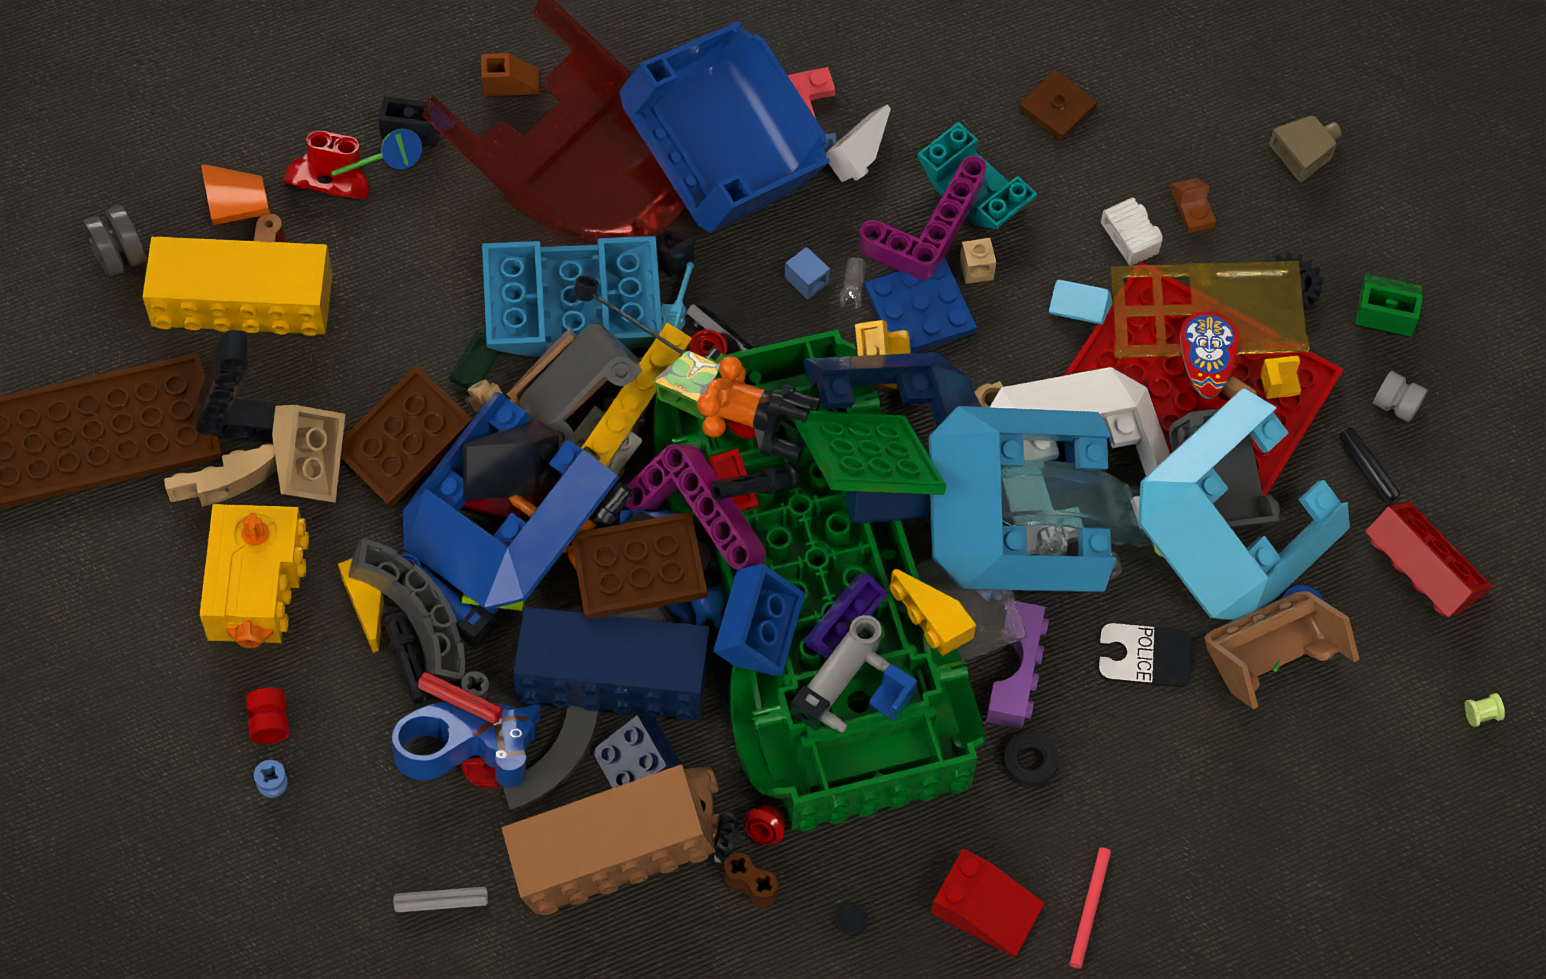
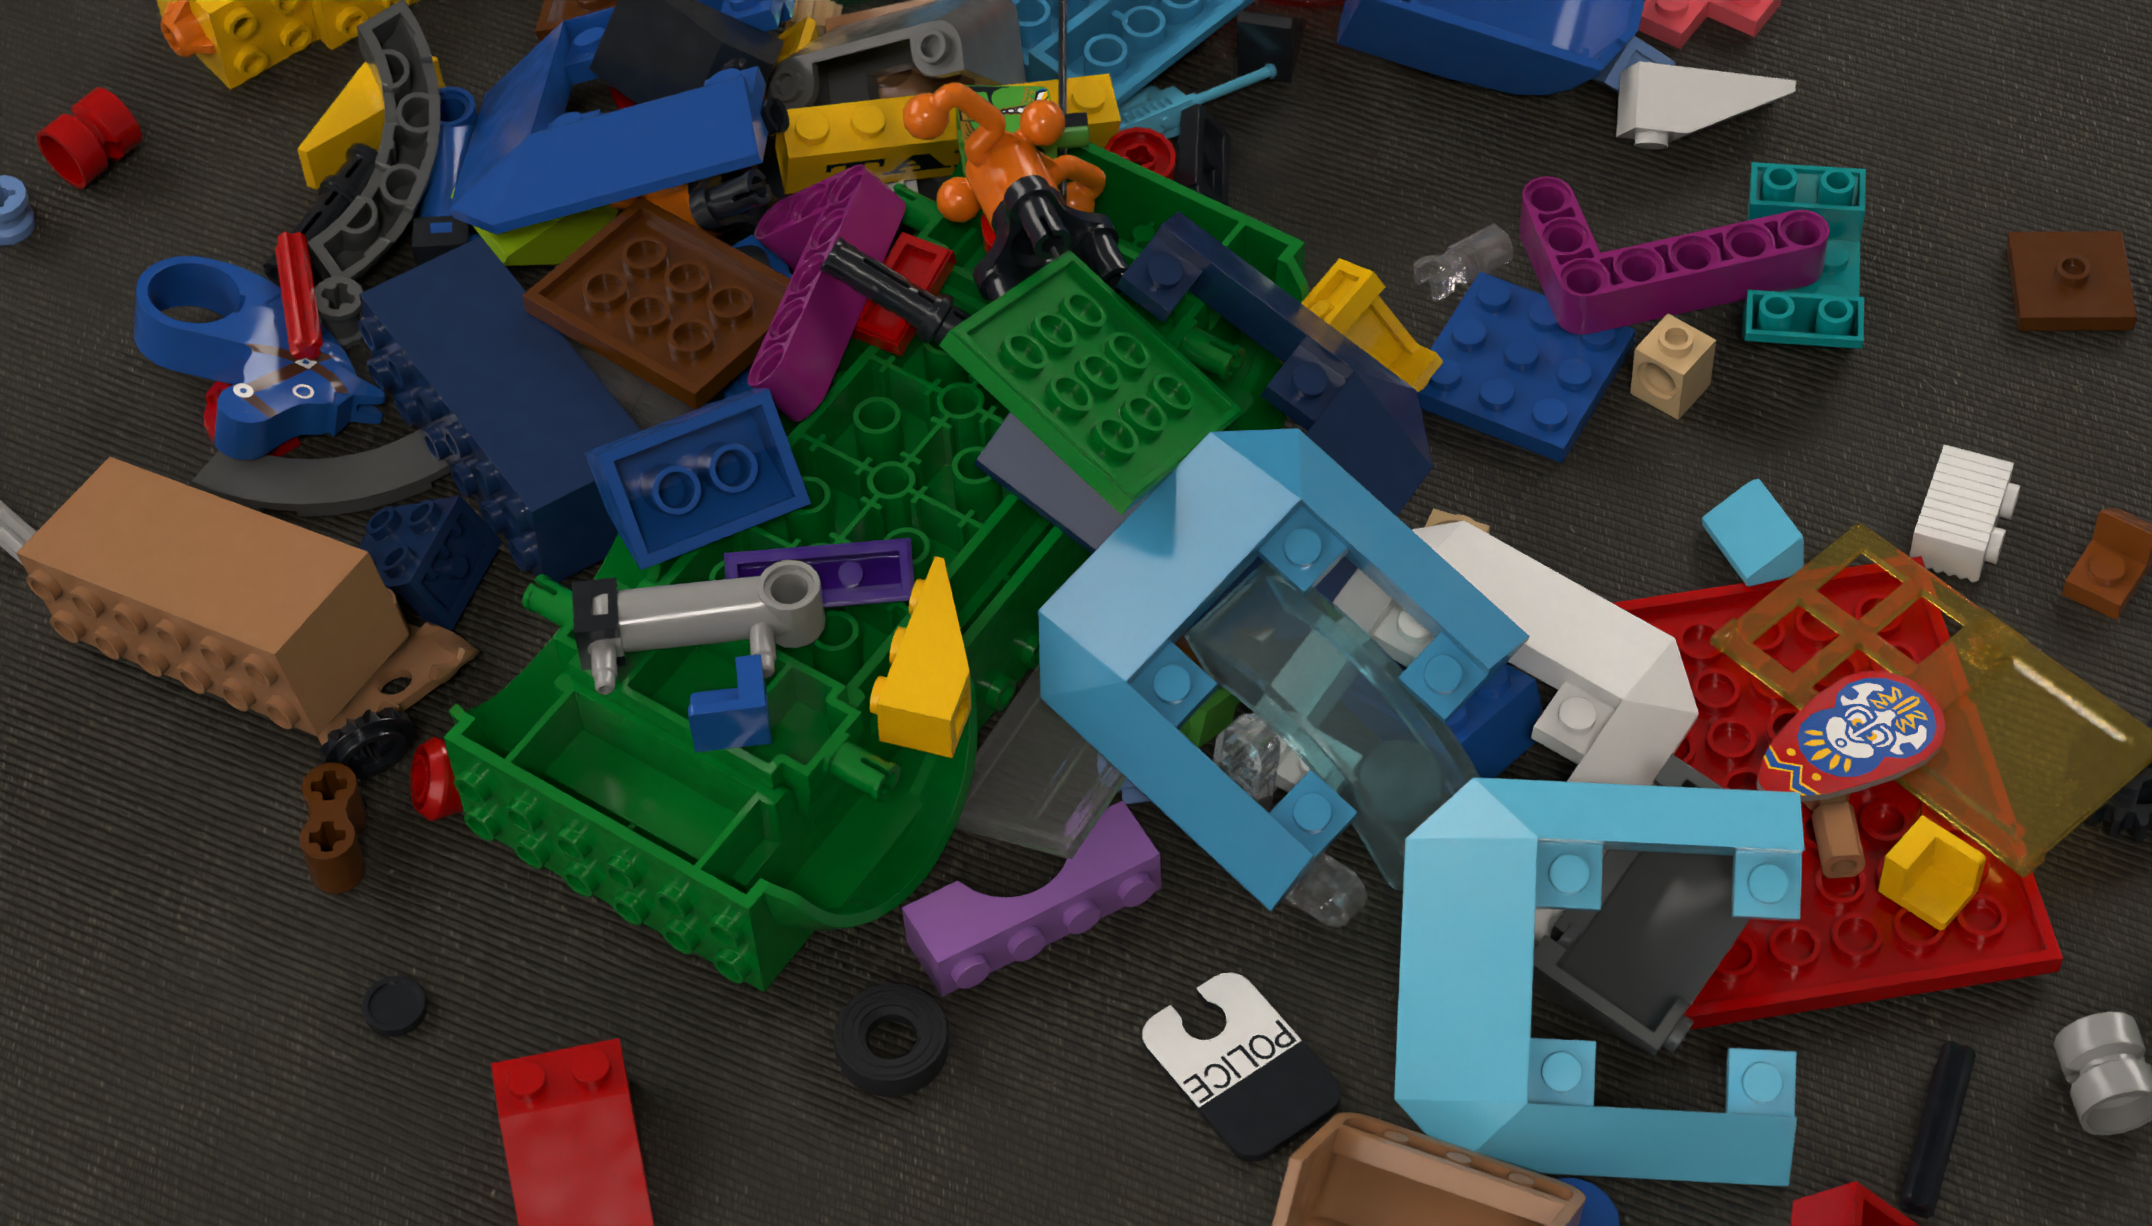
camera: 55 degrees right, 10 degrees down
(807, 273) = (1412, 198): medium blue panel -> none

